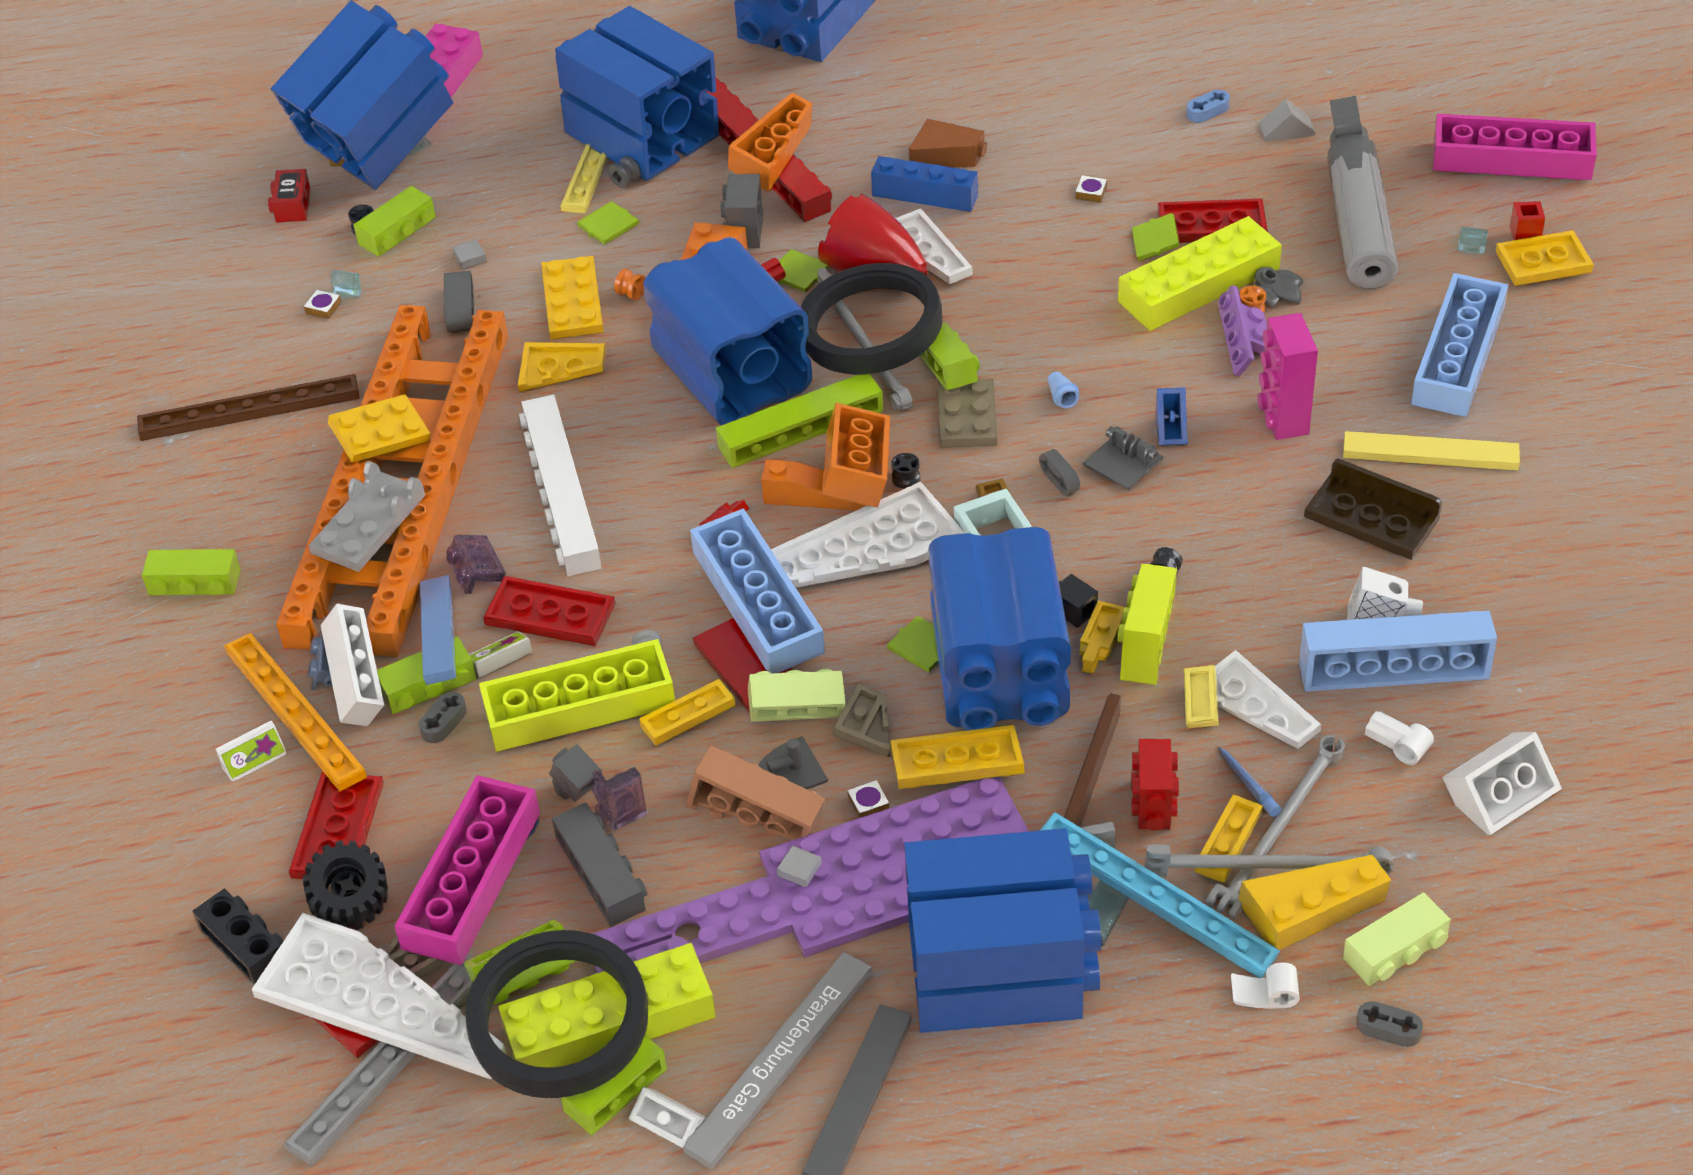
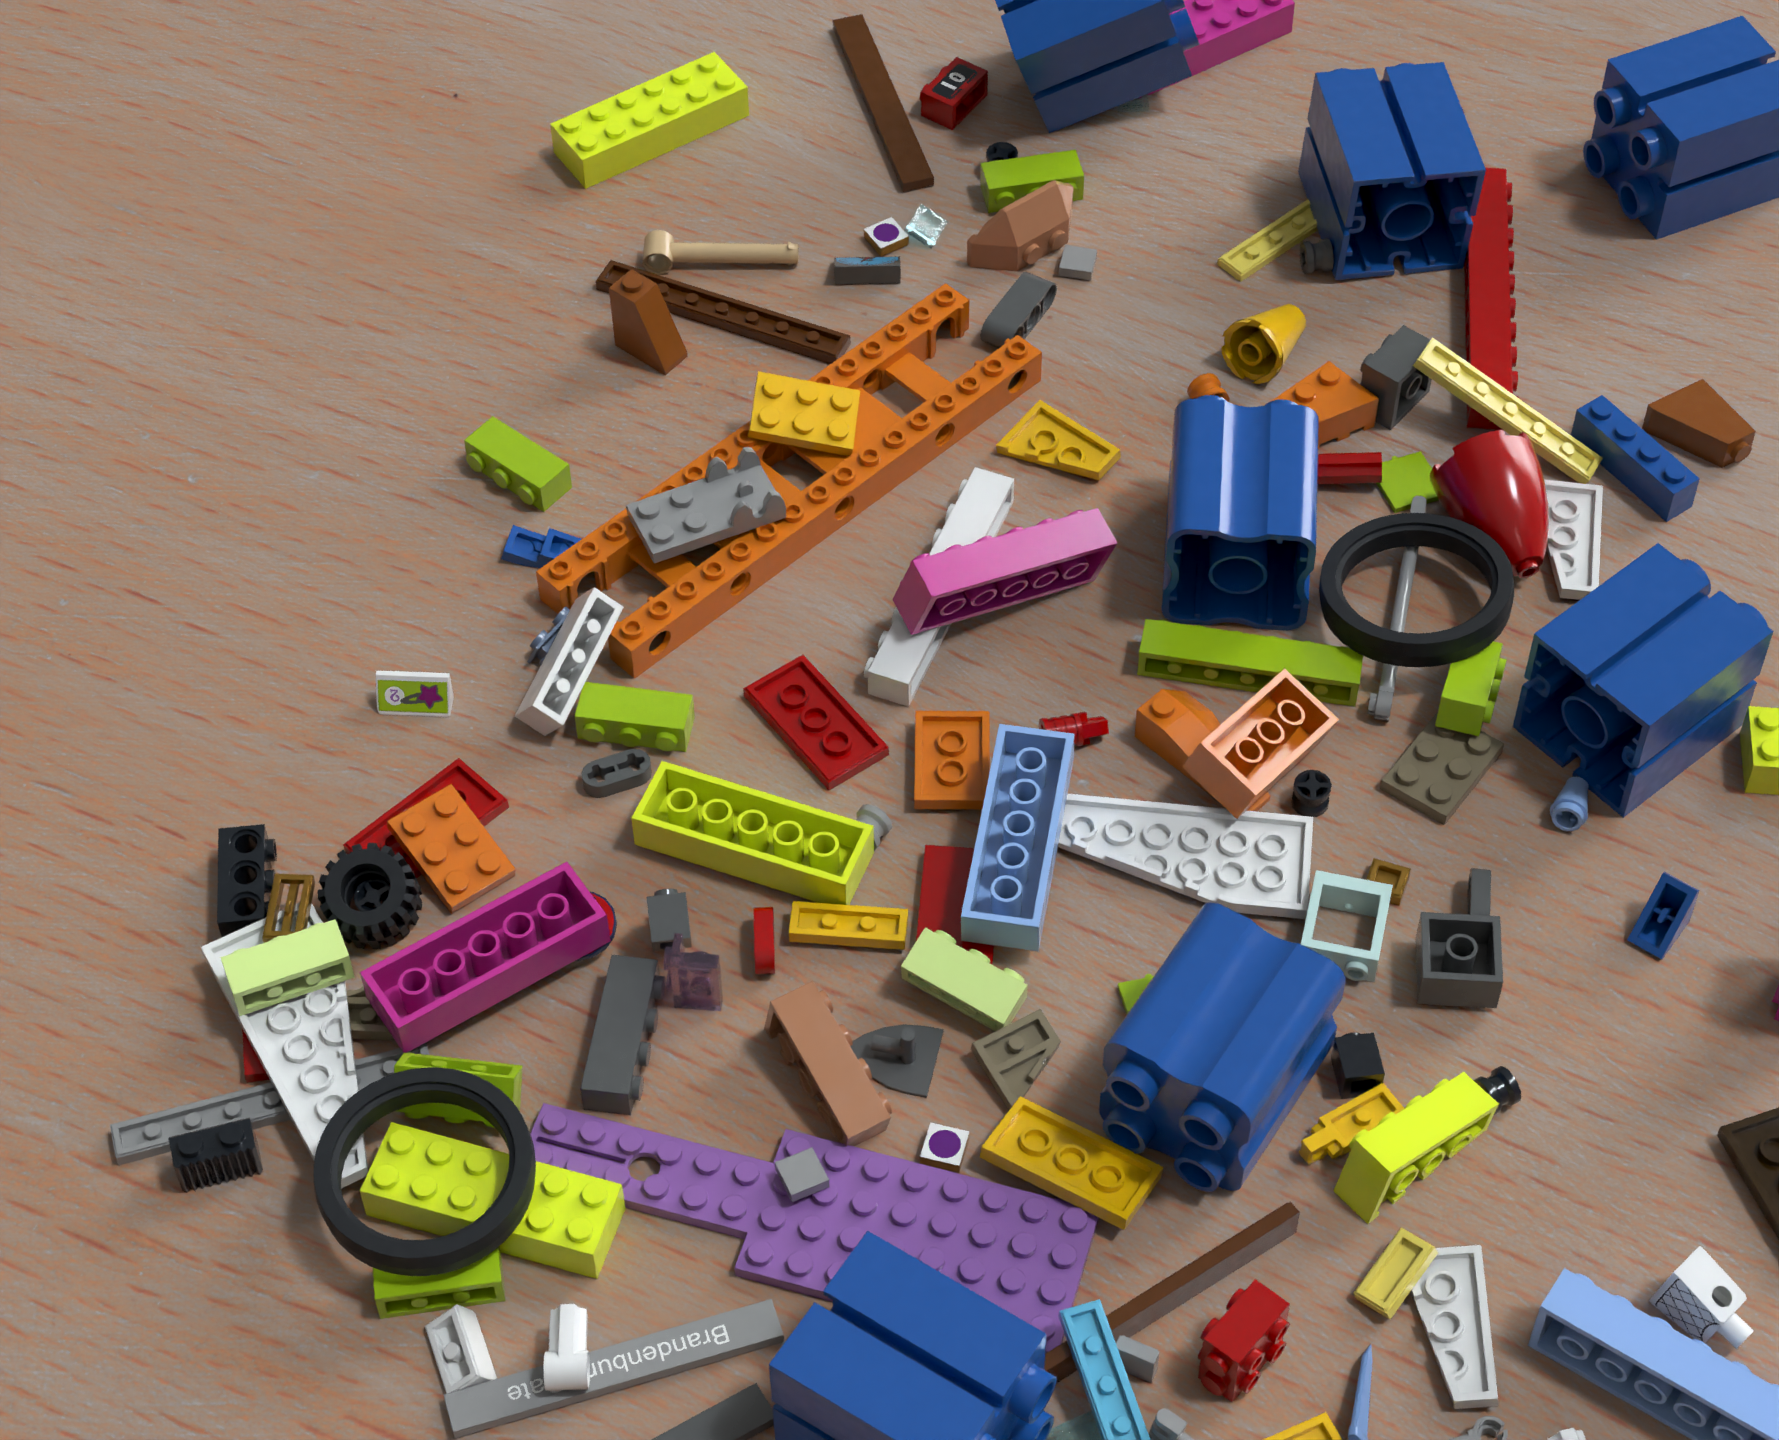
camera: 35 degrees right, 5 degrees up
(84, 316) = (649, 120): none -> neon yellow brick
(173, 393) = (662, 251): none -> tan piece
(207, 436) = (644, 323): none -> dark orange slope
(242, 226) = (883, 103): none -> reddish brown tile
(254, 618) = (535, 549): none -> blue slope
(295, 712) = (487, 678): light orange tile -> none
(308, 944) = (274, 904): none -> pearl gold tile
(329, 330) = (867, 270): none -> dark grey slope
(334, 958) = (287, 967): none -> yellowish green brick
(373, 821) = (451, 848): none -> orange plate
(384, 1109) = (215, 1154): none -> black brick
(419, 252) = (1024, 230): none -> nougat wedge
(437, 630) = (677, 675): medium blue tile -> none
(474, 561) = (787, 619): clear purple bracket -> none
(500, 653) = (726, 738): white slope -> none
(572, 297) = (1139, 374): yellow plate -> none
(603, 446) = (1003, 570): none -> dark pink brick
(608, 222) = (1249, 300): lime piece -> none
(639, 237) = (1262, 342): none -> yellow cone
(640, 753) = (764, 940): none -> red beam
(663, 579) = (951, 759): none -> orange plate
(750, 1068) = (568, 1358): none -> white piece
(771, 140) = (1491, 309): orange wedge -> none
(823, 191) = (1507, 411): none -> light yellow tile
(1051, 291) = (1641, 677): none -> blue brick
(1080, 507) = (1459, 960): none -> dark grey brick
(1123, 458) = (1567, 931): dark grey hinge -> none

